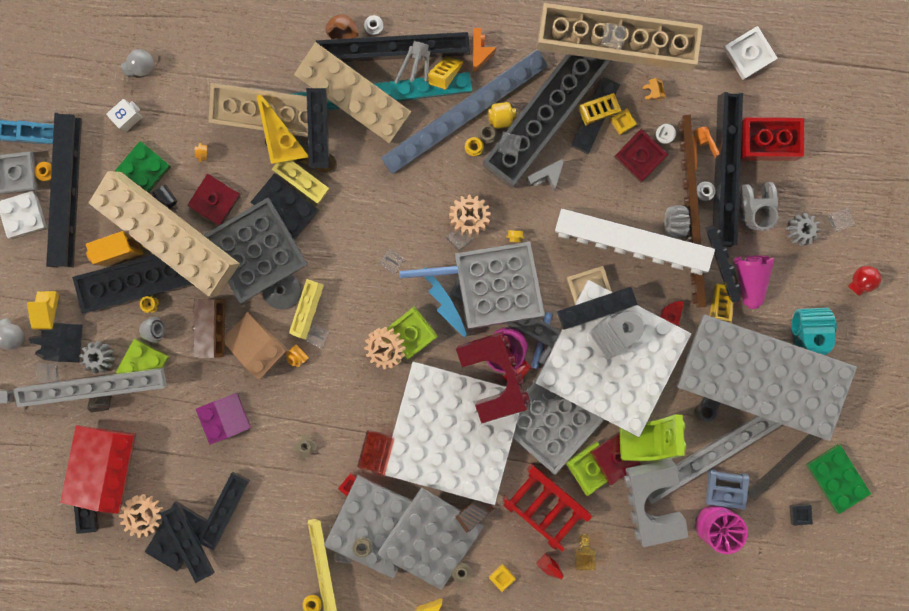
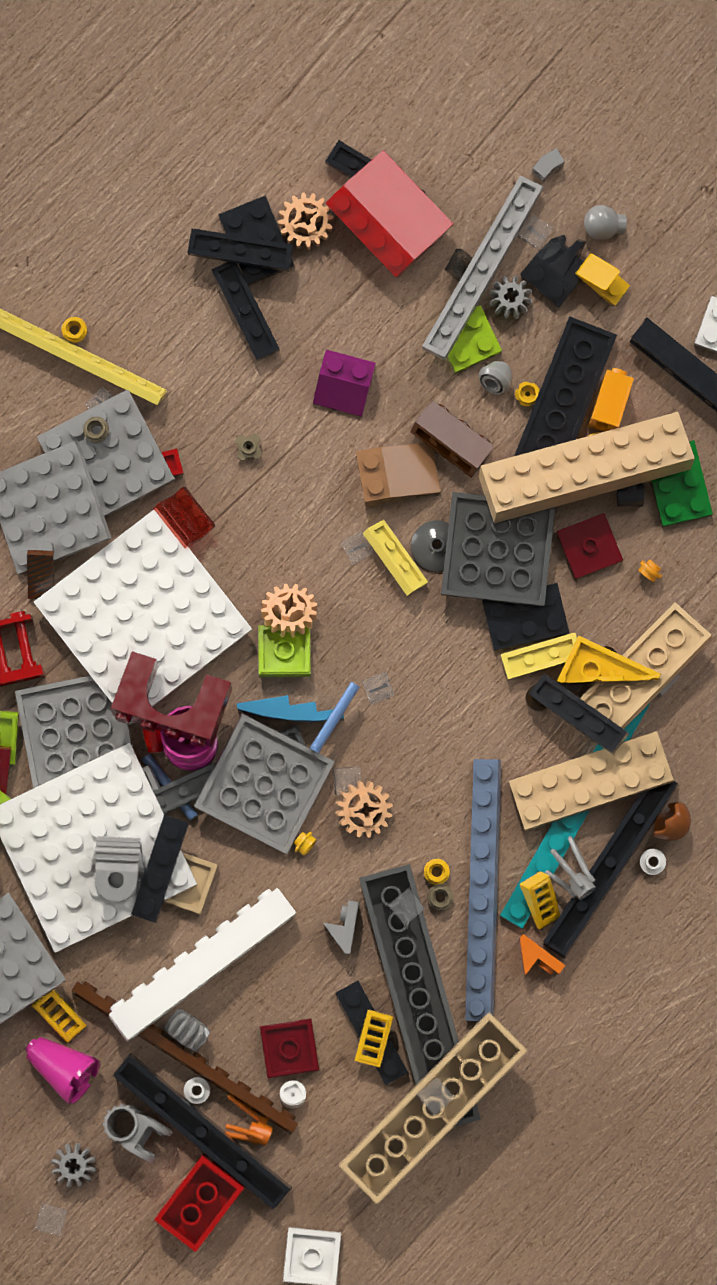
camera: 125 degrees right, 5 degrees down
(296, 356) = (352, 508): light orange plate -> none
(502, 115) = (447, 926): yellow head -> none
(623, 121) = (341, 1058): yellow tile -> none
(657, 89) = (349, 1120): light orange tile -> none
(672, 312) = (91, 952): red plate -> none
(726, 270) = (114, 1045): black plate -> none

